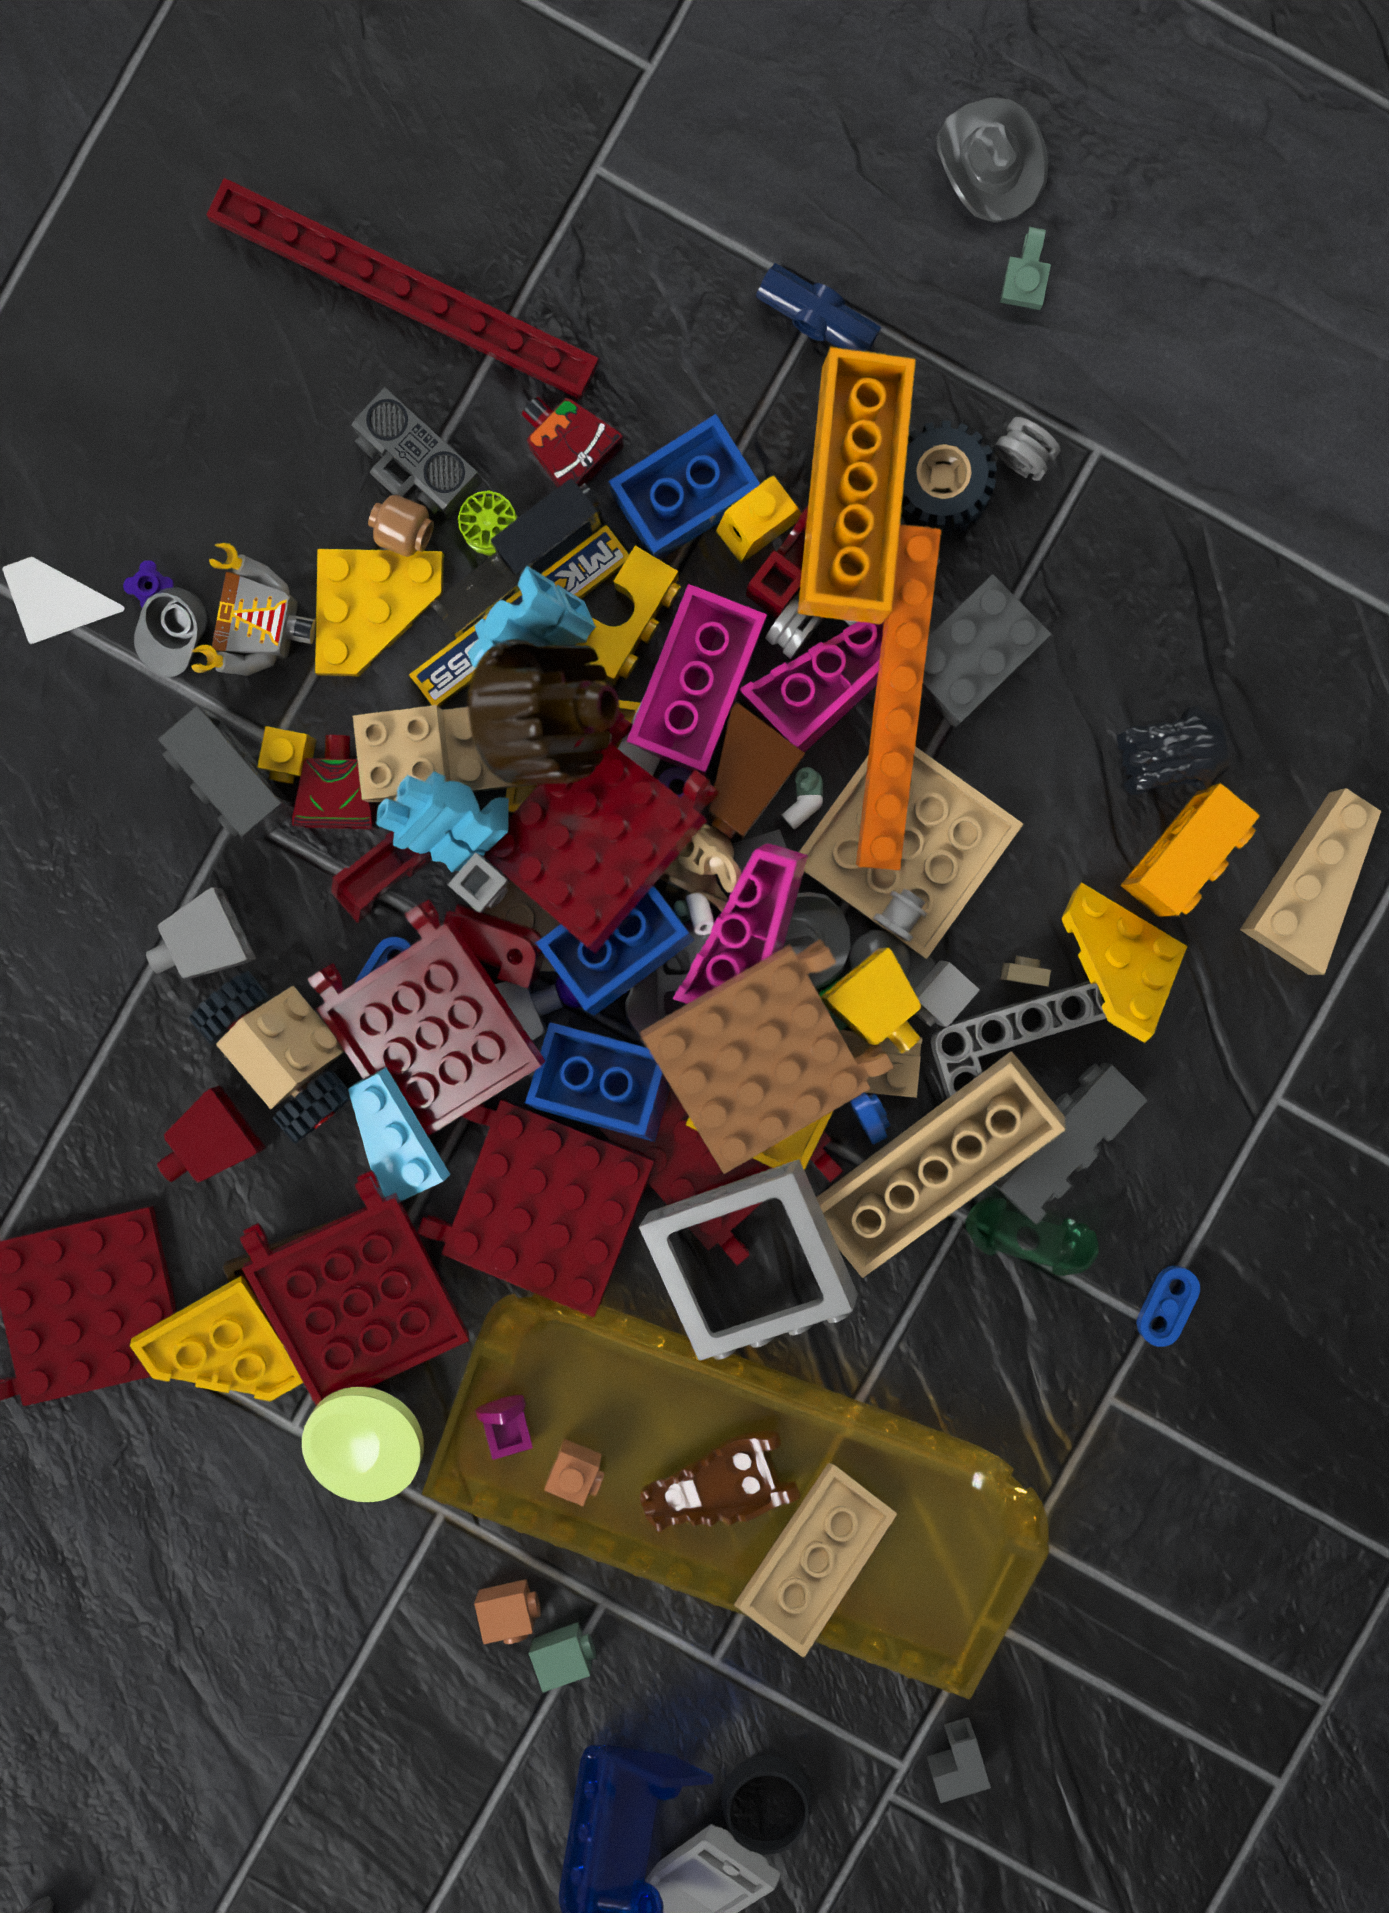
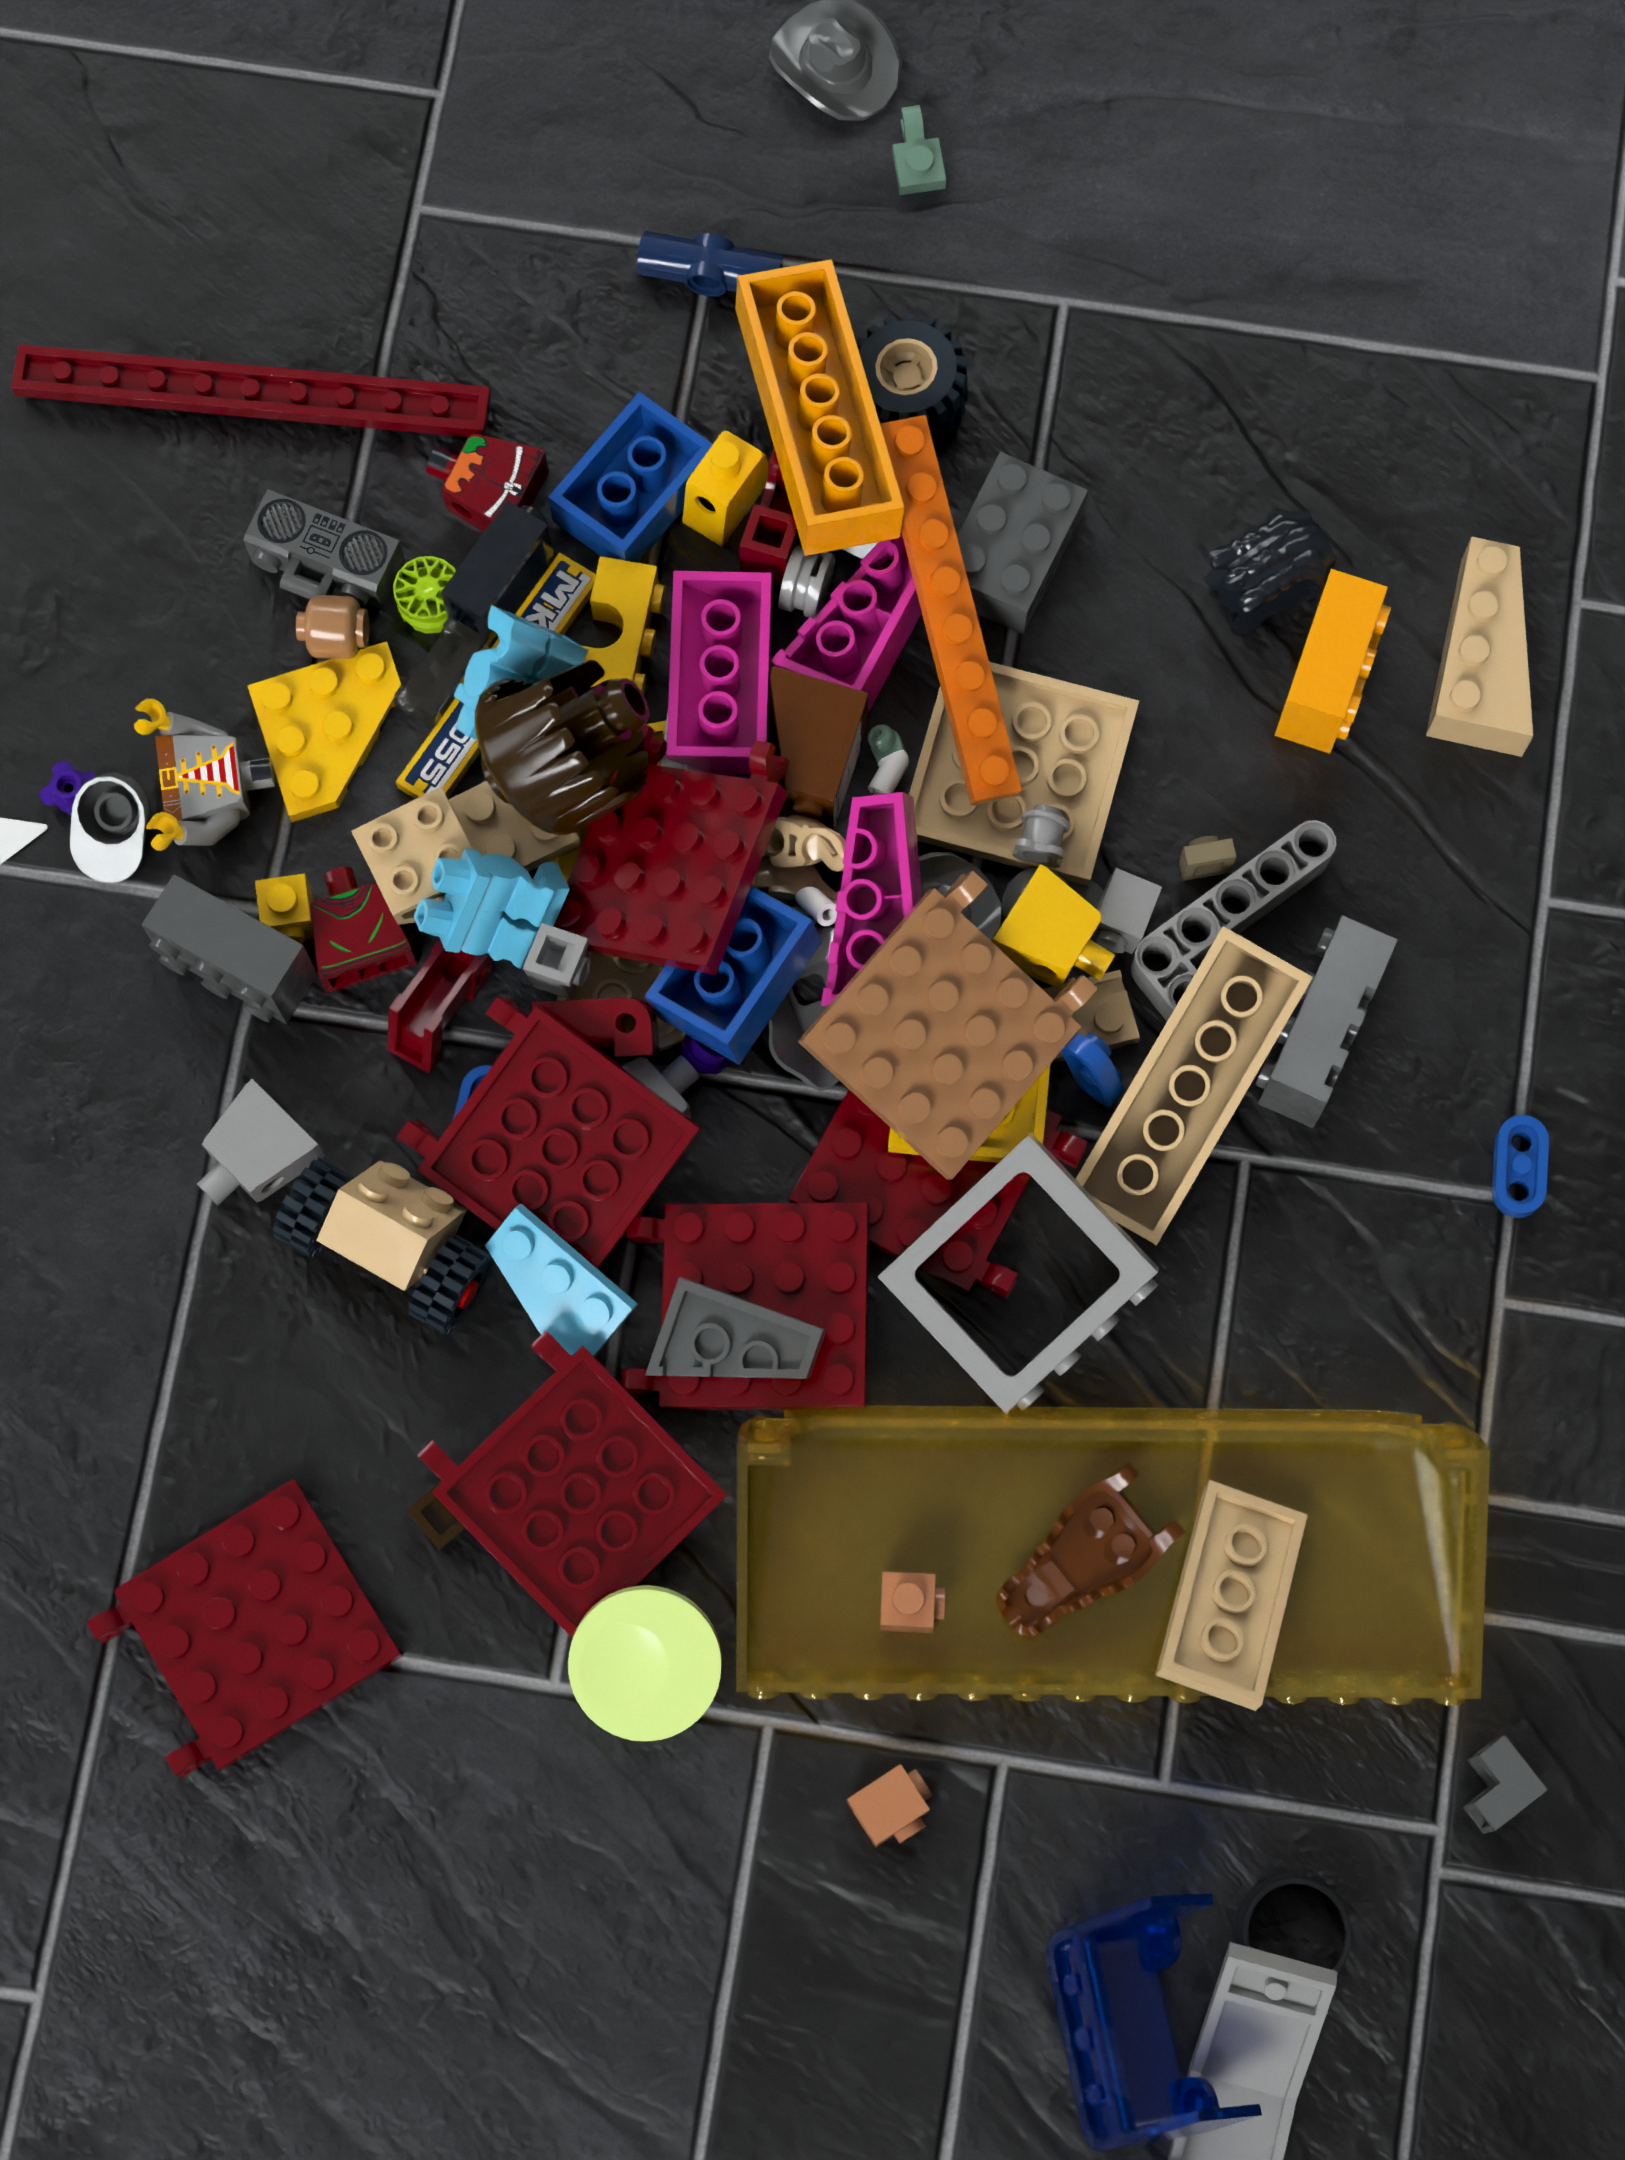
camera: 20 degrees left, 15 degrees down
(209, 1138) = (340, 1372): dark red torso -> none
(220, 1346) = (437, 1602): yellow plate -> none
(504, 1226) = (731, 1337): none -> dark grey wing
(505, 1425) = (807, 1582): magenta tile -> none
(562, 1656) = (977, 1835): sand green brick -> none
(600, 1082) = (774, 1135): blue brick -> none
(1027, 448) = (985, 323): light grey wheel -> none
(1064, 1247) = (1370, 1145): clear green piece -> none
(1125, 959) = (1312, 797): yellow plate -> none

